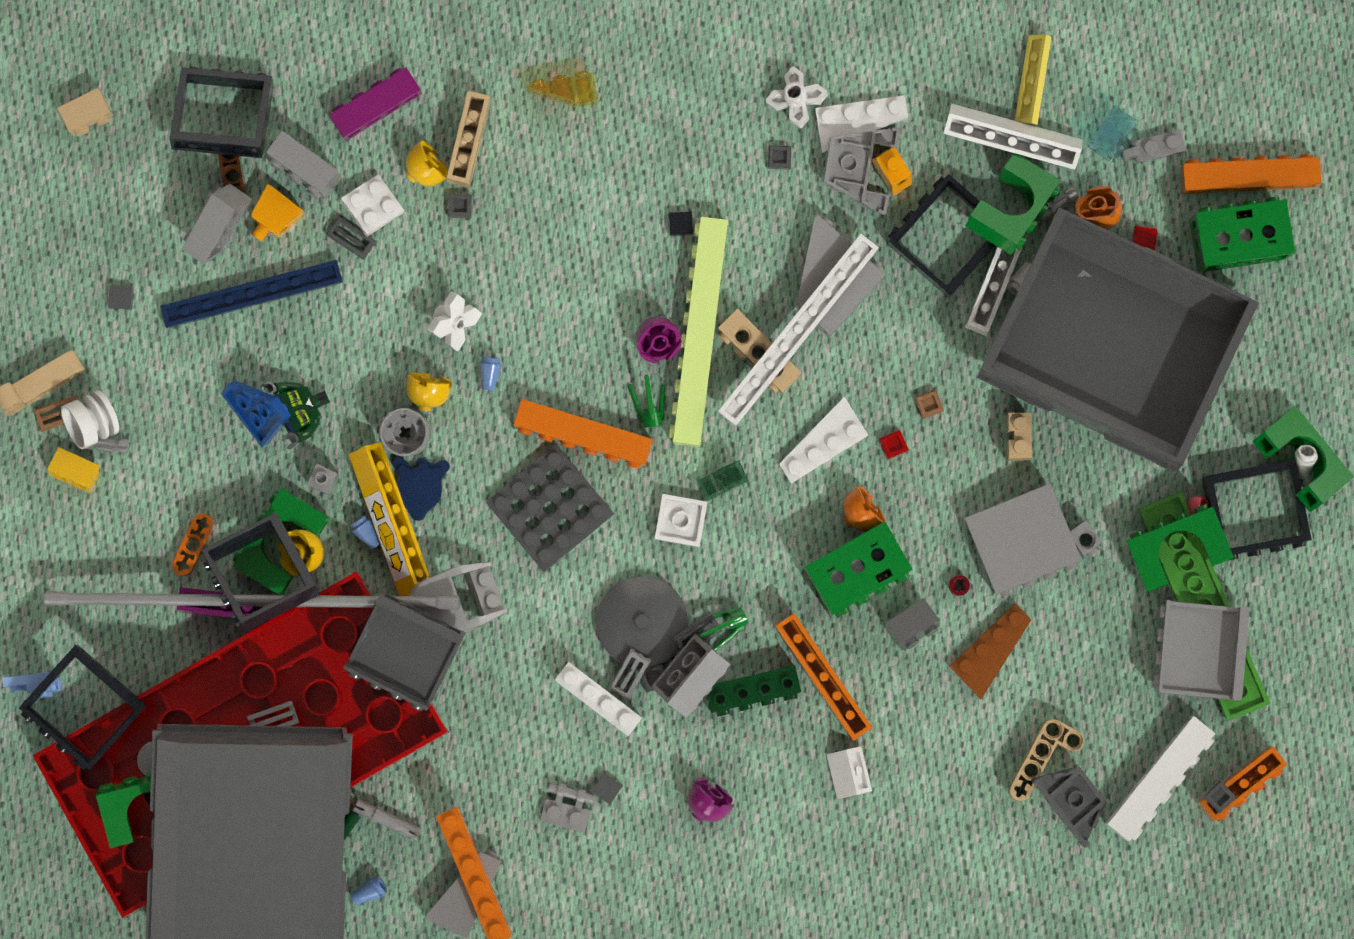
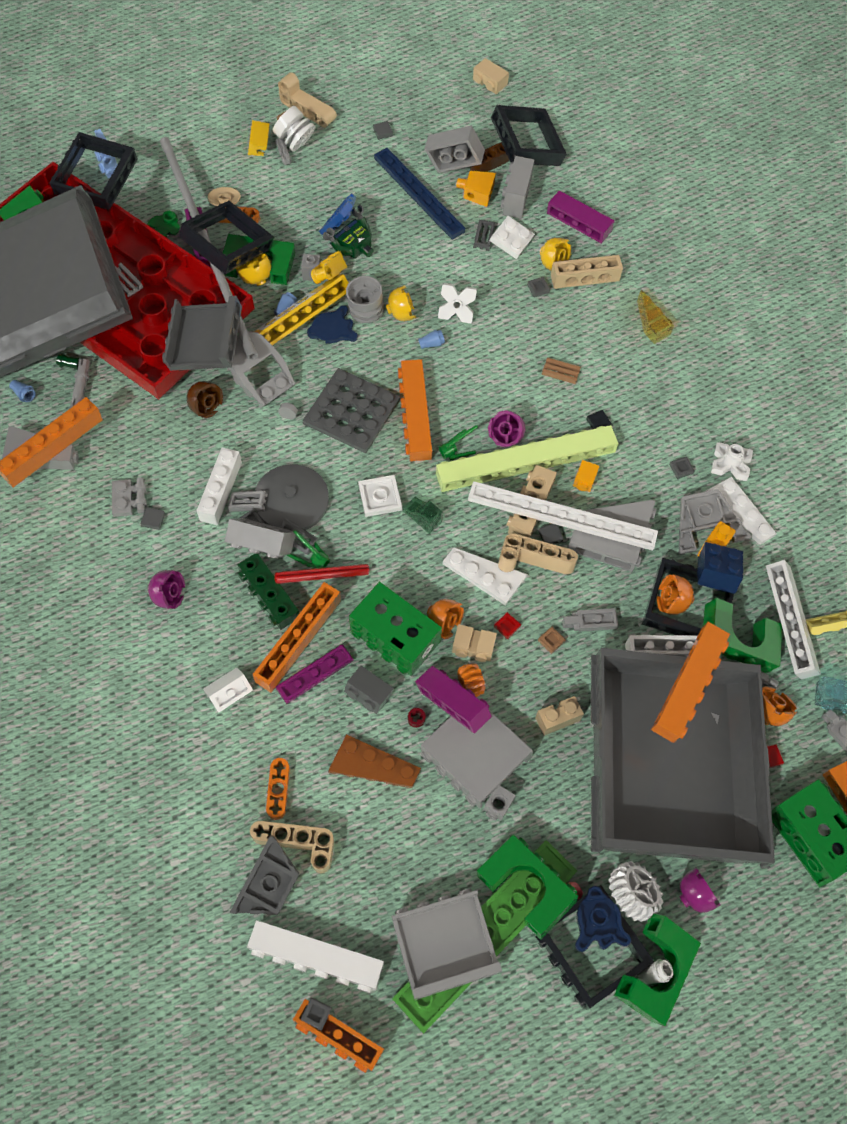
camera: 65 degrees right, 20 degrees down
(152, 548) = (224, 194): none -> tan dish
(176, 643) = (165, 224): none -> green plate
(340, 458) = (329, 268): none -> yellow piece
(470, 680) = (204, 396): none -> reddish brown cylinder
(524, 584) = (287, 411): none -> light grey tile
(606, 220) = (561, 368): none -> medium nougat tile
(750, 275) = (586, 476): none -> light orange brick
(758, 623) = (321, 573): none -> red axle
(807, 350) = (551, 534): none -> dark grey tile
(831, 376) = (536, 553): none -> tan beam
(867, 674) = (314, 674): none -> magenta tile
(902, 491) = (473, 643): none -> tan brick
(925, 350) = (592, 620): none -> light grey hinge
(930, 188) = (720, 567): none -> dark blue brick
(943, 253) = (675, 595): none -> orange cylinder
(945, 512) = (471, 678): none -> orange gear
(960, 756) = (284, 774): none -> orange beam
(962, 541) = (454, 699): none -> magenta brick
(1056, 294) = (690, 683): none -> orange brick
(1225, 445) = (635, 891): none -> white gear
(1239, 494) = (599, 921): none -> dark blue tile
(1248, 383) = (697, 892): none -> magenta cylinder

